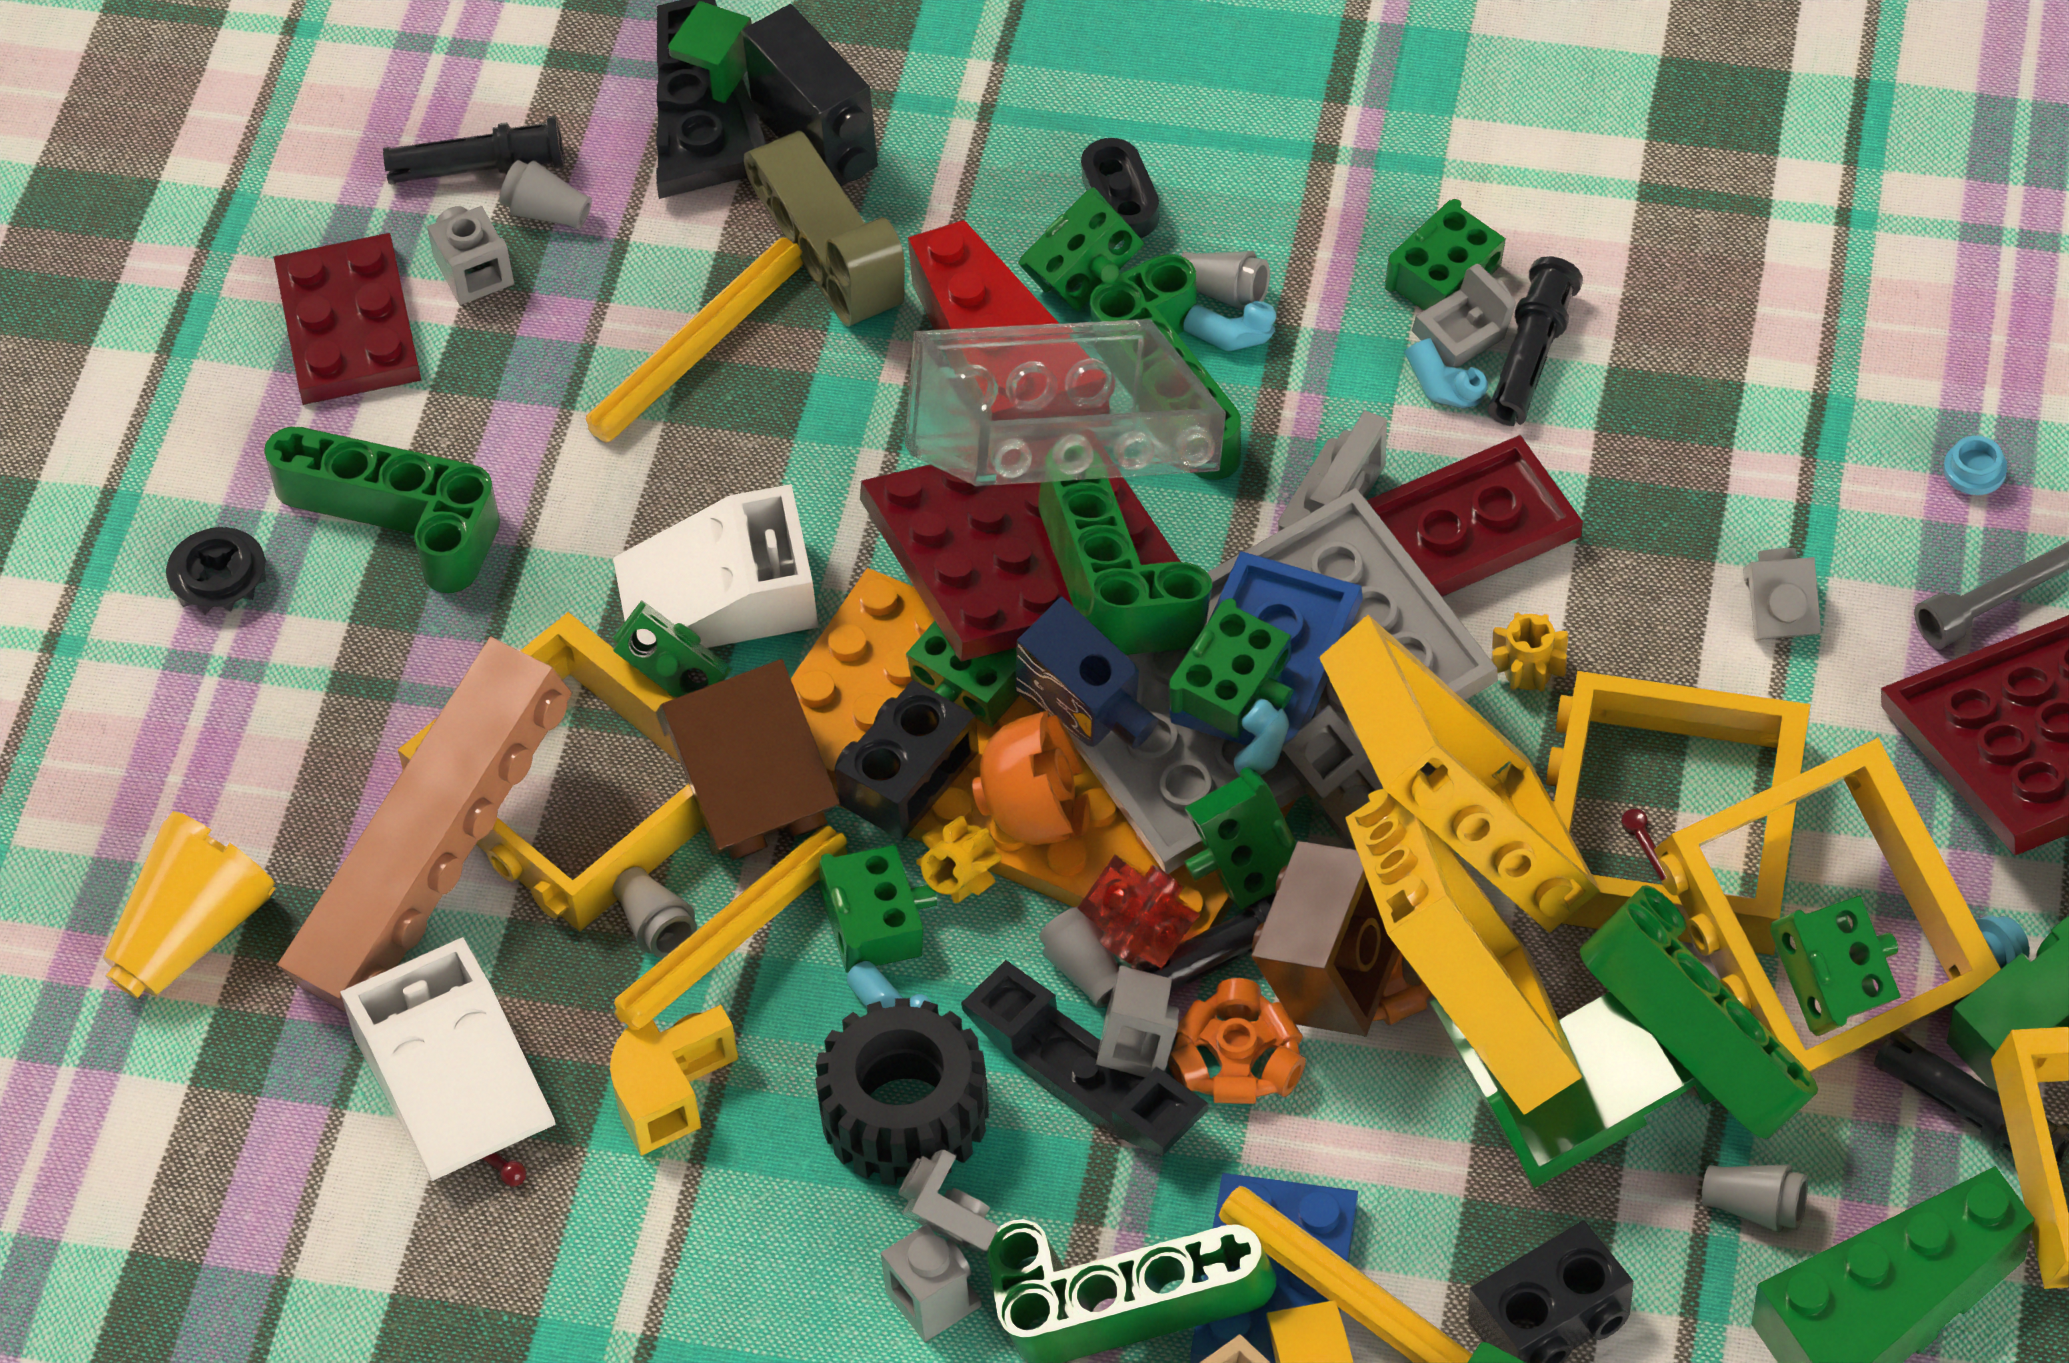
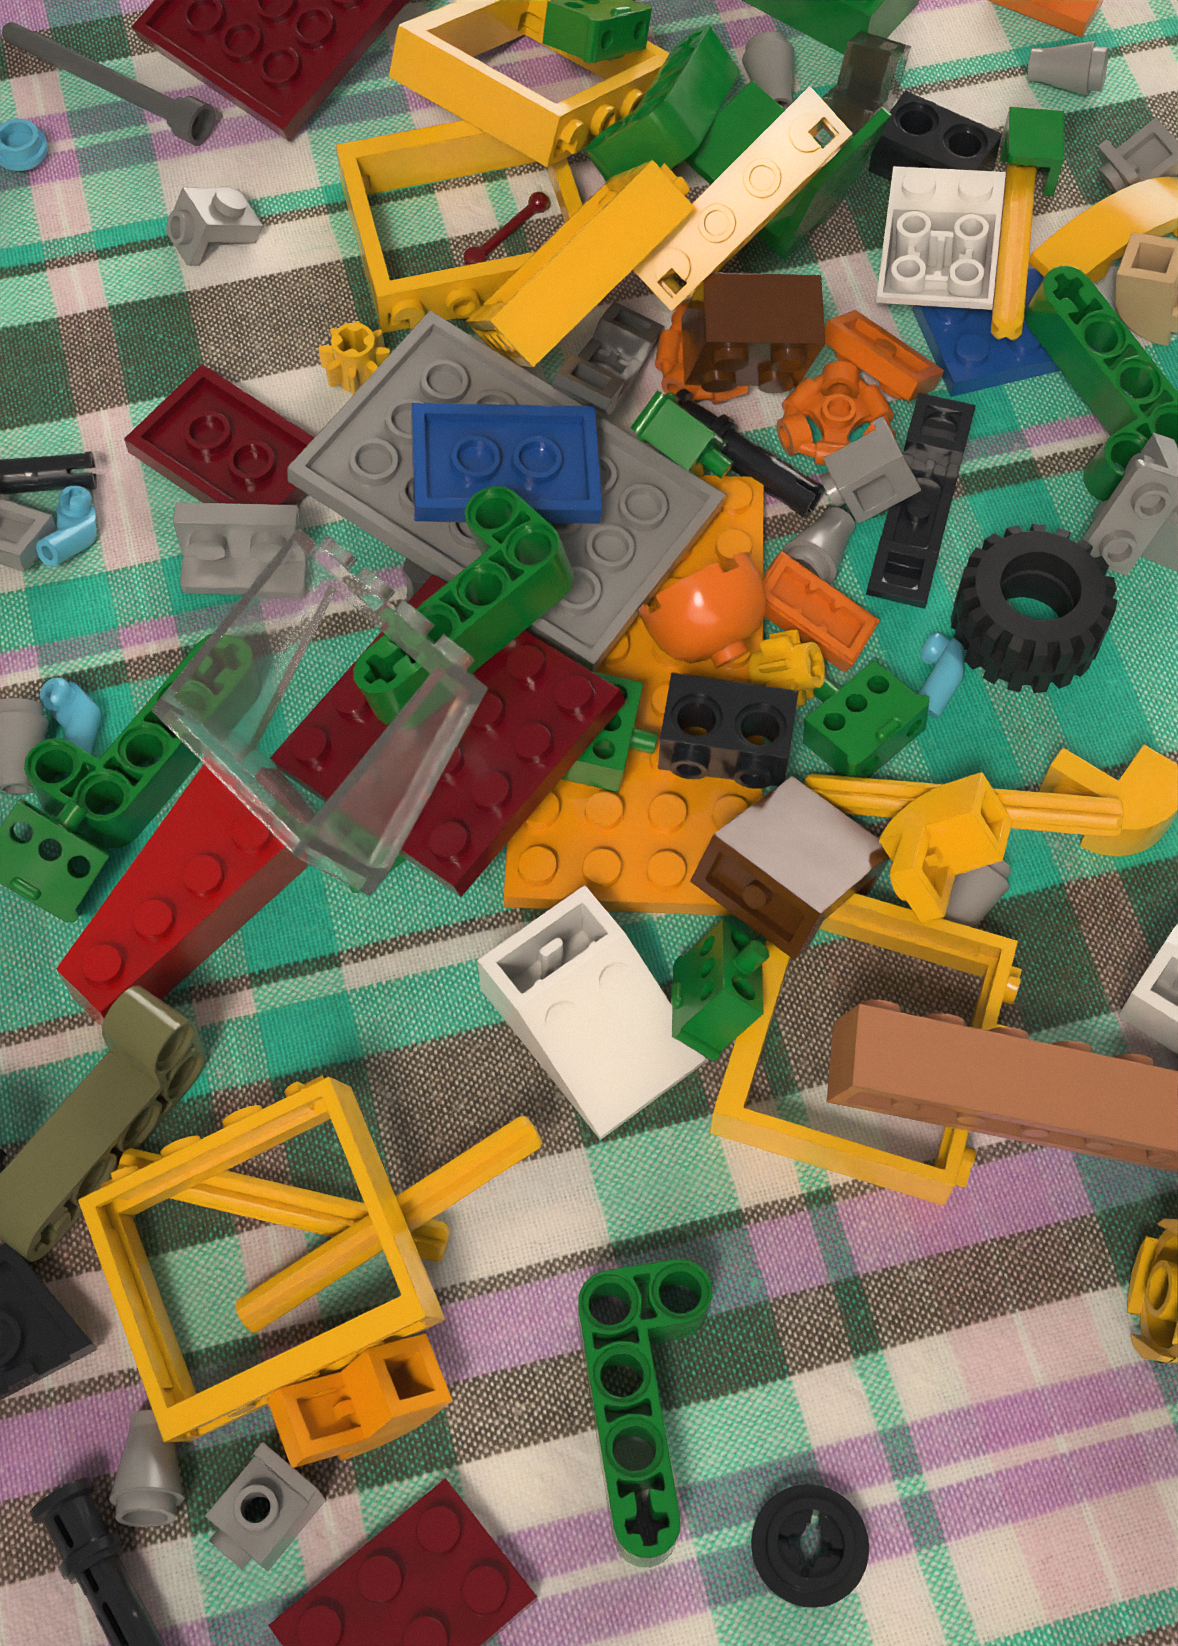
camera: 120 degrees left, 10 degrees up
(501, 321) = (363, 1406): none -> light orange brick
(622, 380) = (361, 1241): none -> yellow axle
(639, 219) = (191, 1160): none -> yellow window
(694, 863) = (943, 836): none -> yellow brick
(1012, 914) = (817, 611): none -> orange plate
(1081, 678) = (619, 559): dark blue torso -> none
(1138, 911) = (785, 491): clear red brick -> none
(1231, 669) = (555, 465): green piece -> none
(1270, 732) = (615, 417): medium azure arm -> none
(1290, 1115) = (883, 356): none -> orange plate
(1394, 1212) = (941, 238): none -> white slope
(1674, 1266) = (867, 79): none -> clear smoke brick

